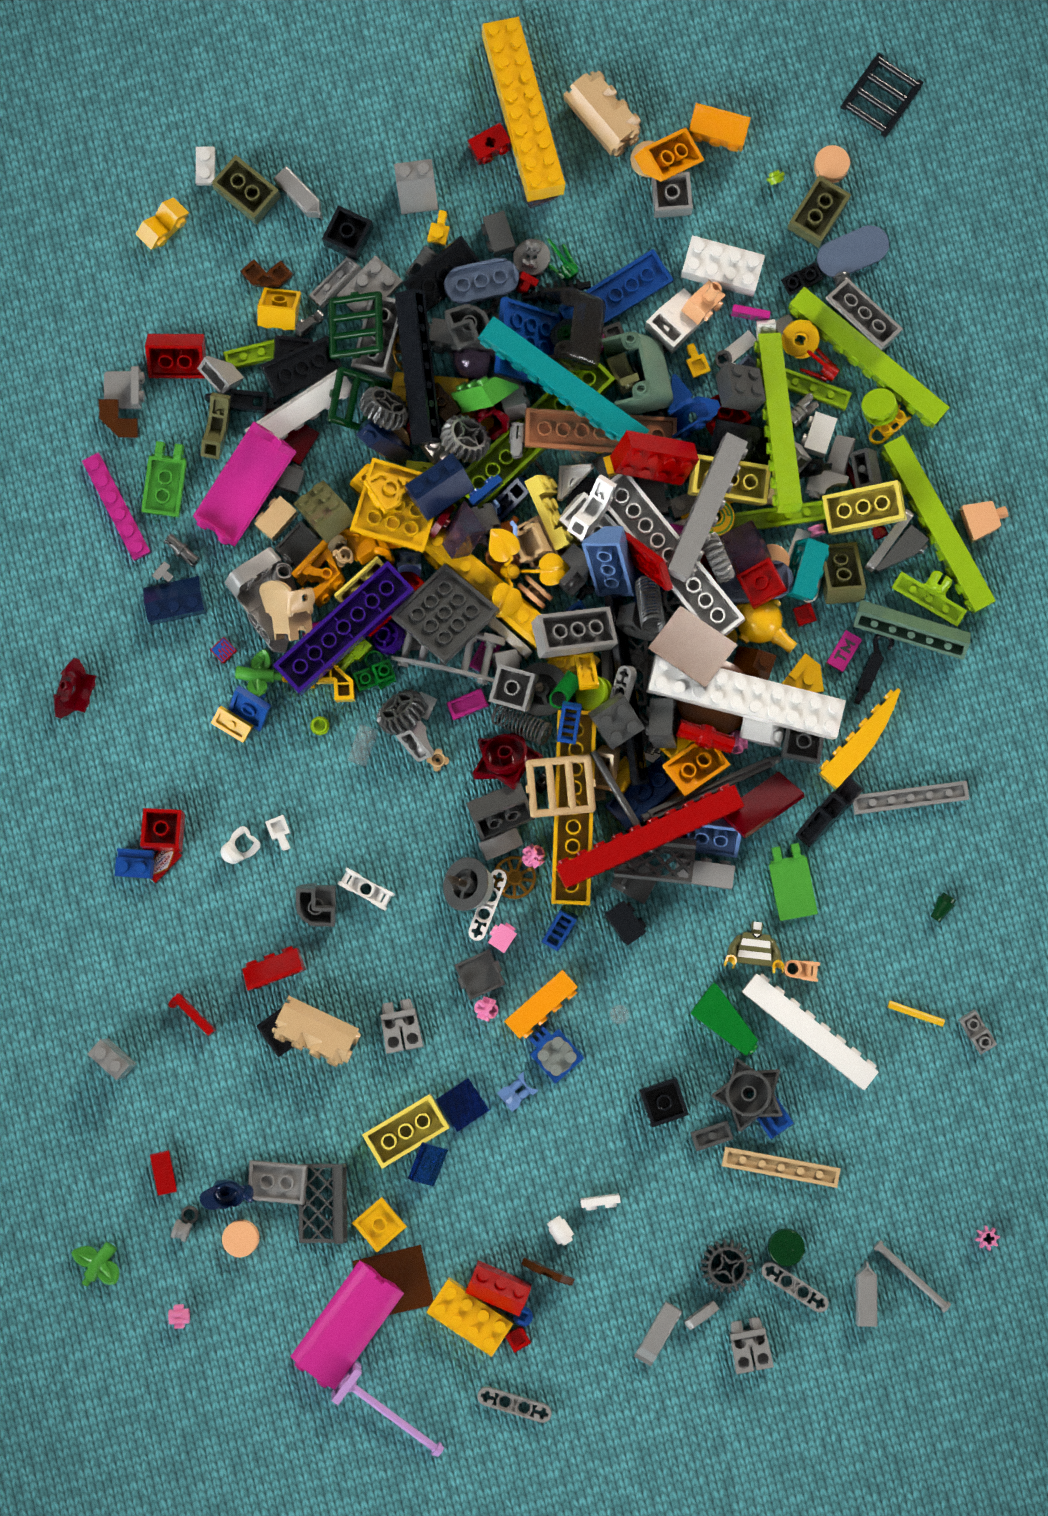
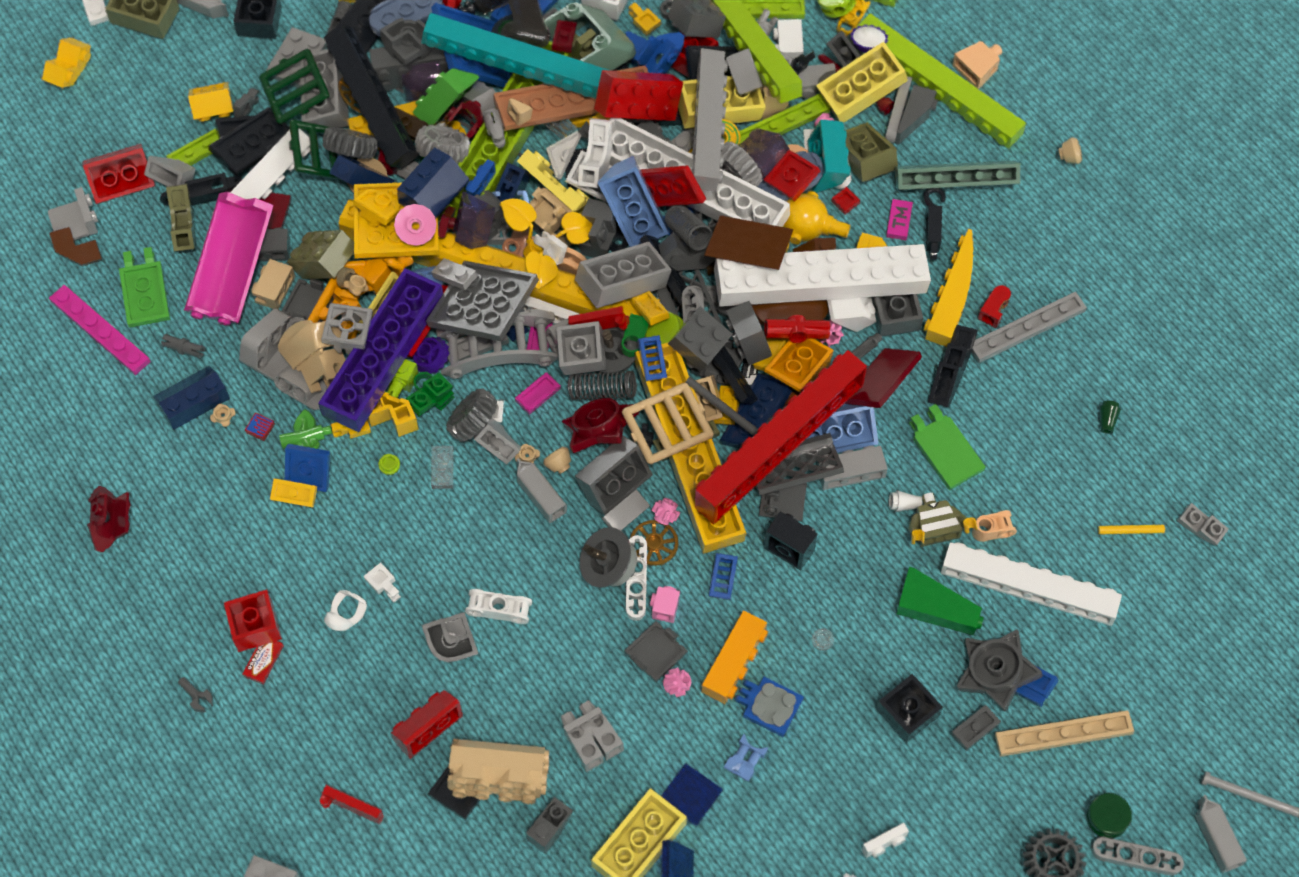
camera: 25 degrees left, 20 degrees down
(99, 873) = (196, 695): none -> dark grey bar
(135, 863) = (232, 669): blue plate -> none
(162, 572) = (169, 372): light grey tile -> none
(192, 624) = (222, 409): none -> tan plate
(274, 278) = (180, 82): reddish brown tile -> none
(325, 620) = (347, 313): none -> light grey piece
(334, 282) = (259, 61): light grey tile -> none
(341, 1090) = (549, 825): none -> dark grey slope
(405, 531) = (415, 214): none -> bright pink dish
(430, 576) = (454, 274): none -> light grey plate
(436, 798) = (540, 491): none -> light grey piece
(460, 775) = (558, 460): none -> tan cone
(523, 581) = (552, 246): none -> white plate
(540, 438) = (519, 111): none -> tan slope
(541, 667) = (607, 318): none -> red hinge
(613, 363) = (564, 36): none -> dark red plate
(734, 919) = (903, 501): none -> white cone
(757, 467) = (744, 72): none -> light grey slope
(840, 454) = (818, 44): light grey slope -> none
(889, 465) = (867, 37): none -> white piece
(894, 763) = (996, 301): none -> red leg
(931, 595) = (961, 142): lime plate -> none
(1025, 641) = (1071, 151): none -> tan cone

